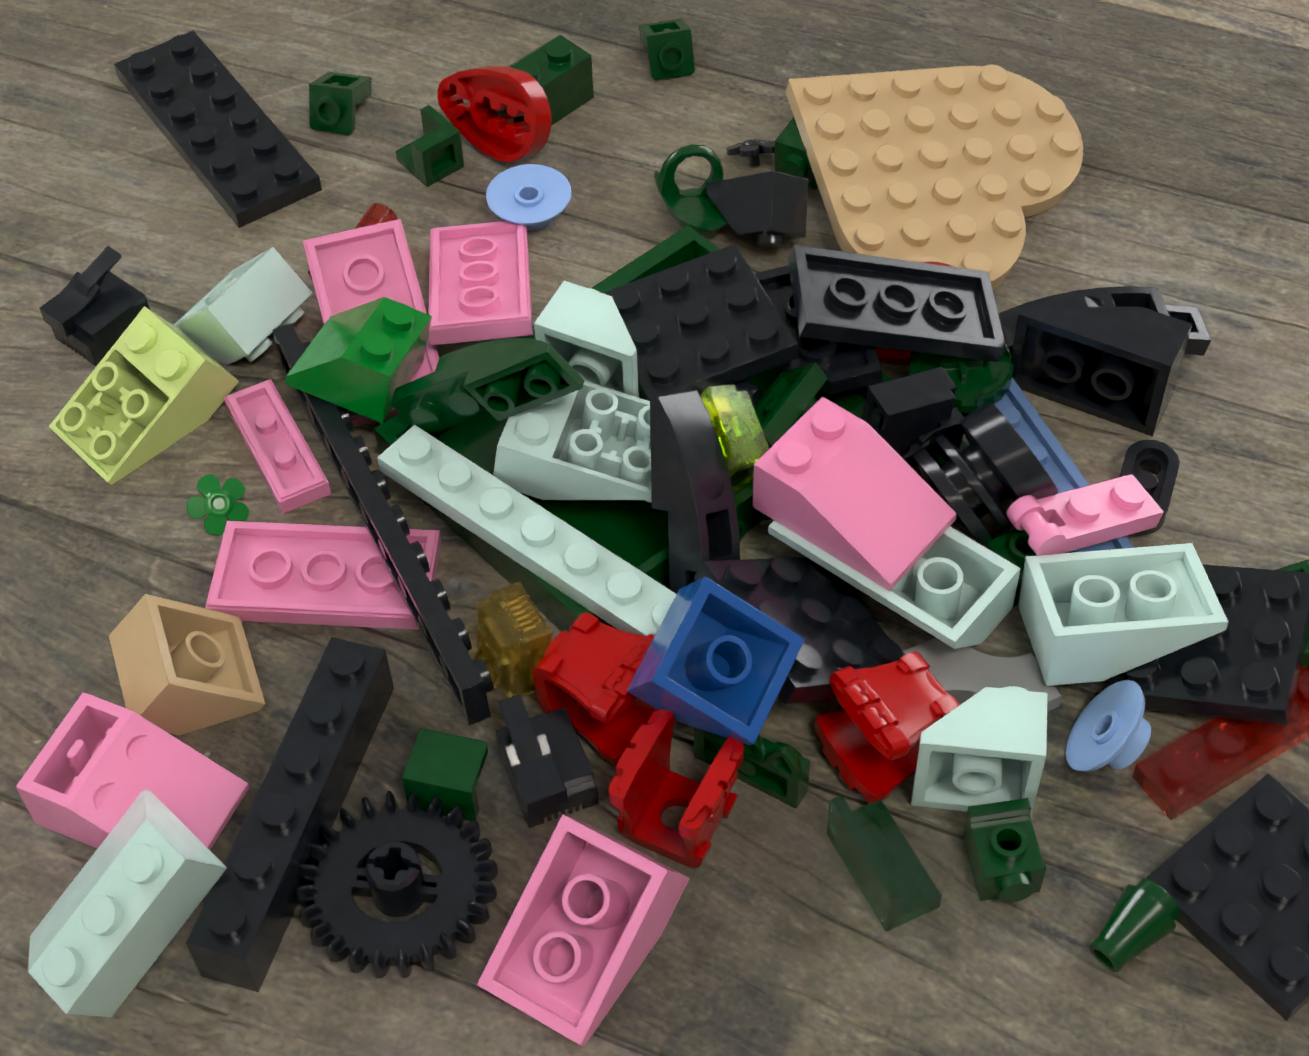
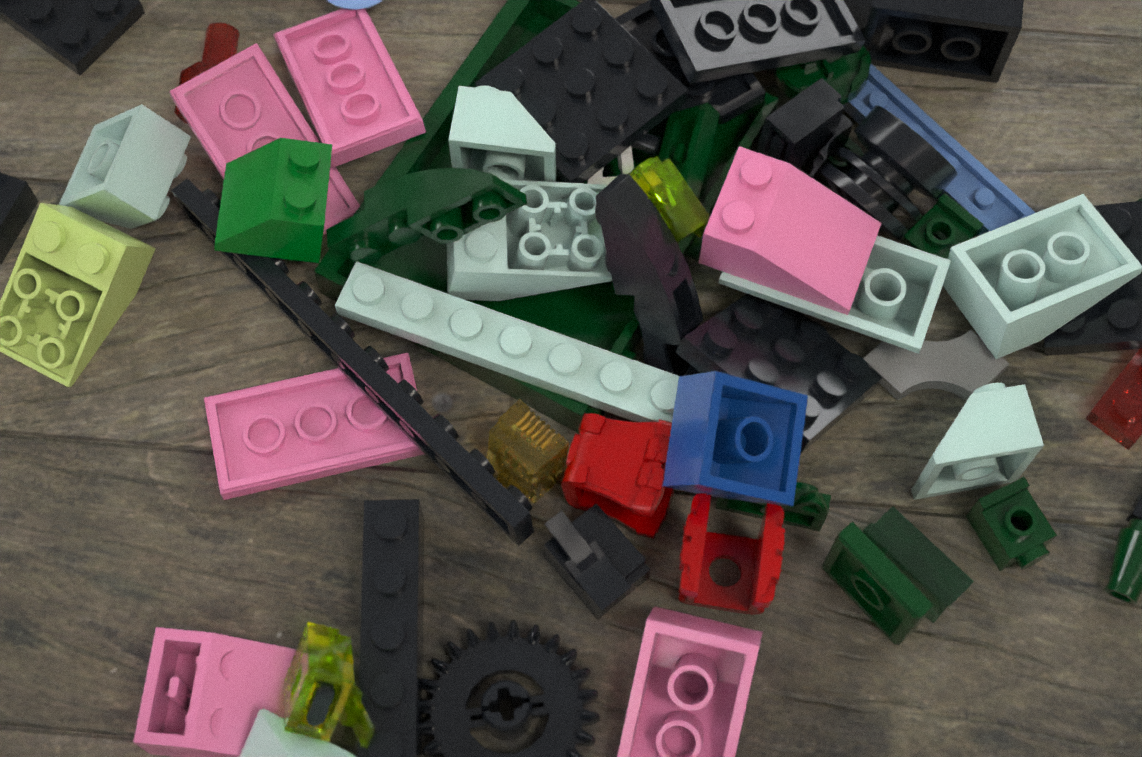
camera: 20 degrees left, 15 degrees up
(184, 665) = (227, 561): tan slope -> none
(215, 786) = (322, 687): none -> clear neon green piece
(217, 503) = (188, 383): green plant -> none
(277, 446) = (216, 303): bright pink tile -> none
(445, 768) = (514, 594): dark green panel -> none
(824, 858) = (876, 584): none -> dark green tile
(881, 722) = (880, 440): red piece -> none
(1085, 515) = (983, 189): bright pink plate -> none
(1109, 729) = (1062, 385): light blue piece -> none
(1156, 470) = (1013, 143): black plate -> none

